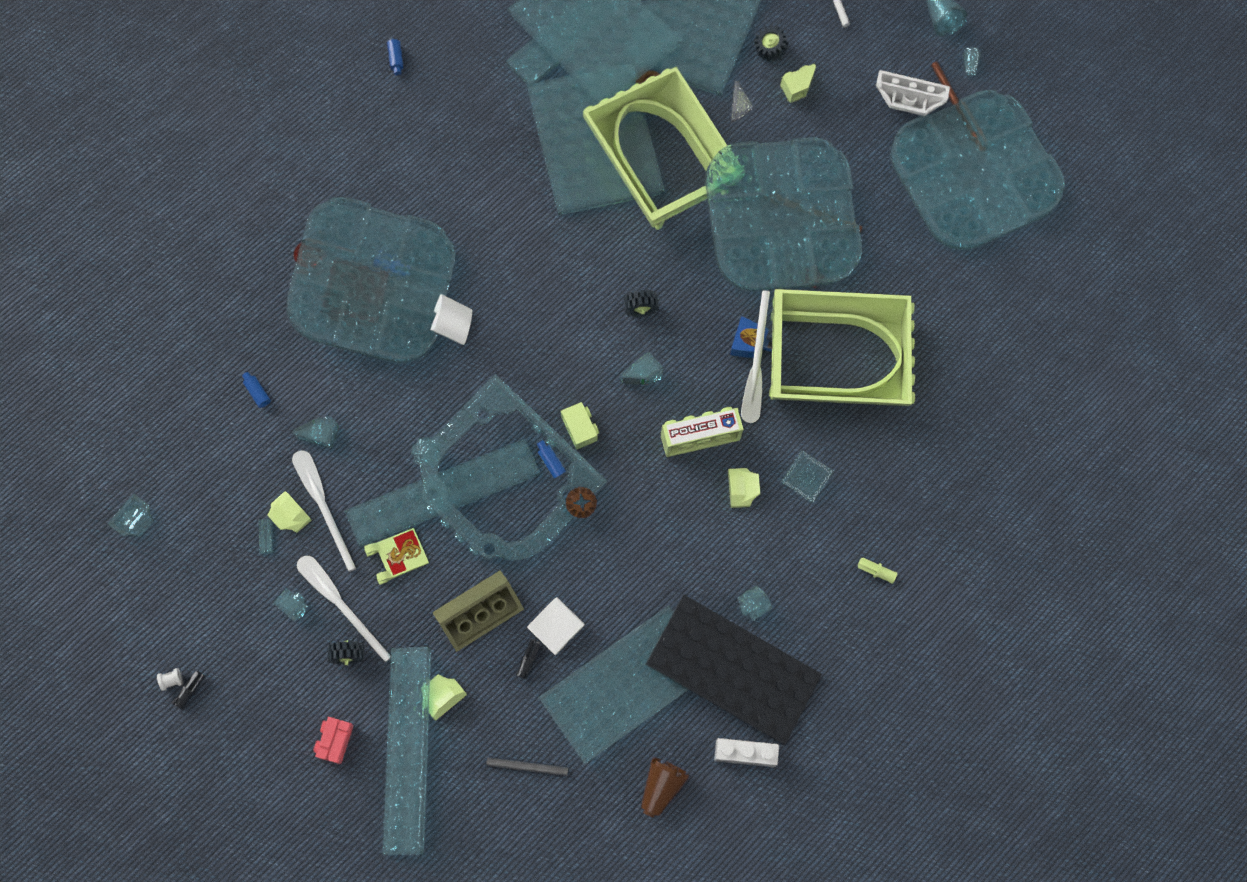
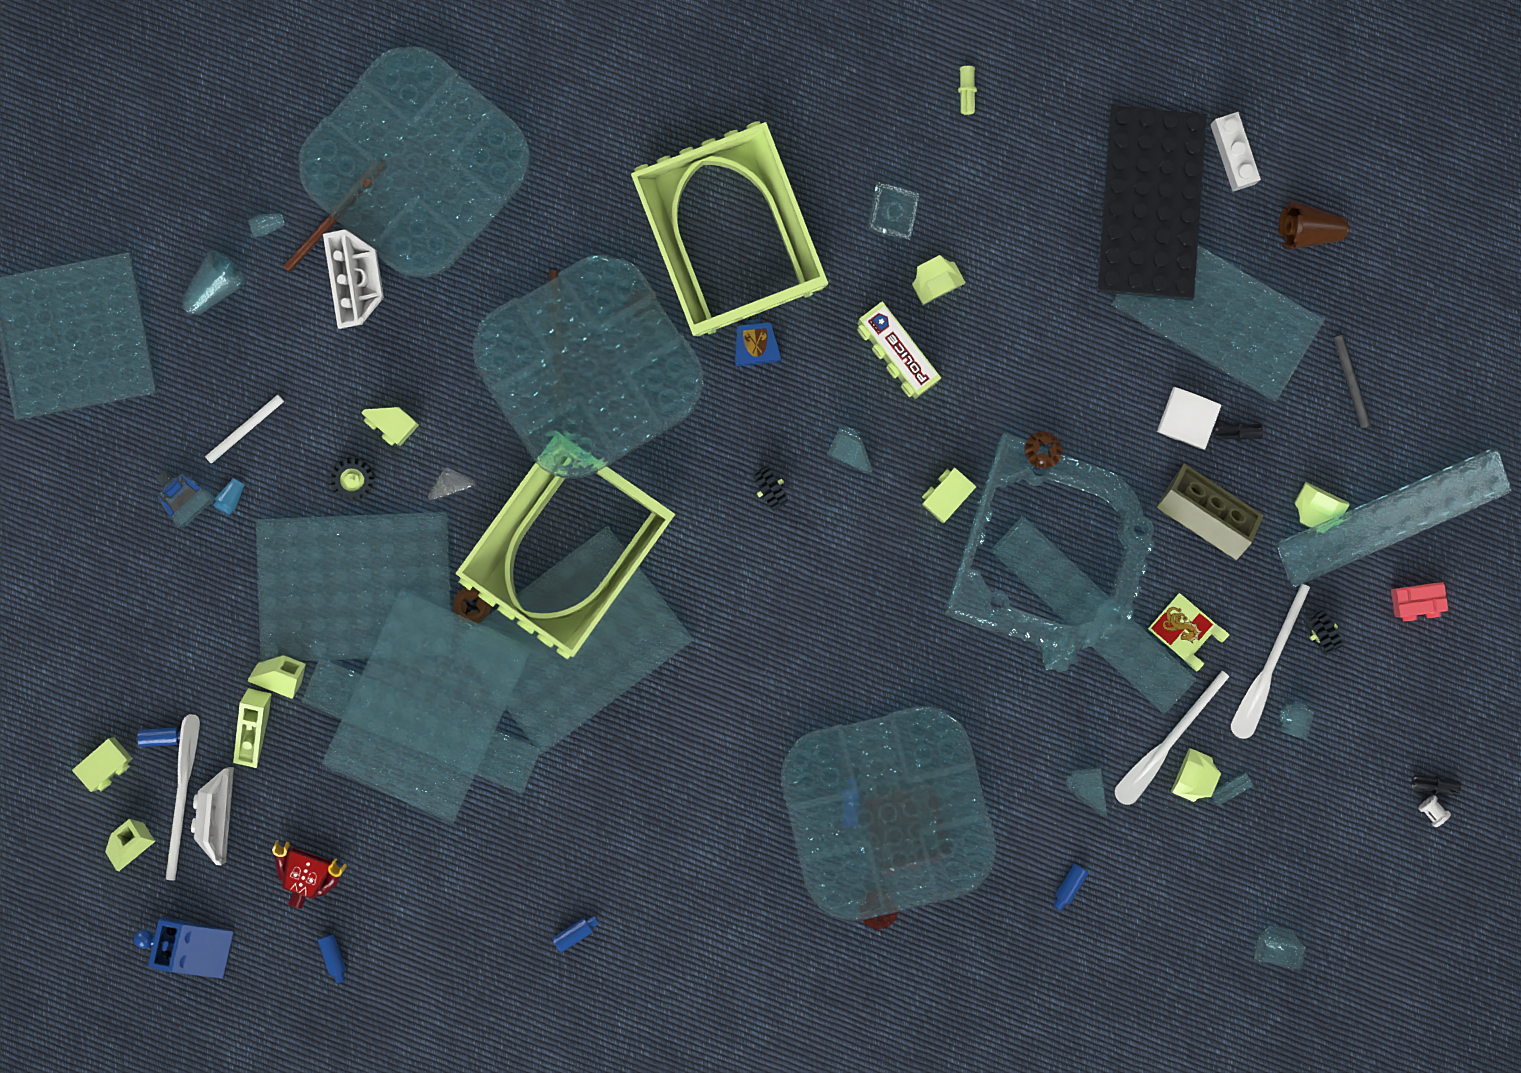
camera: 110 degrees left, 15 degrees up
(452, 319) = (889, 698): white slope -> none
(550, 459) = (1014, 503): blue cylinder -> none
(753, 391) = (816, 314): white piece -> none
(754, 603) = (1068, 210): clear light blue brick -> none

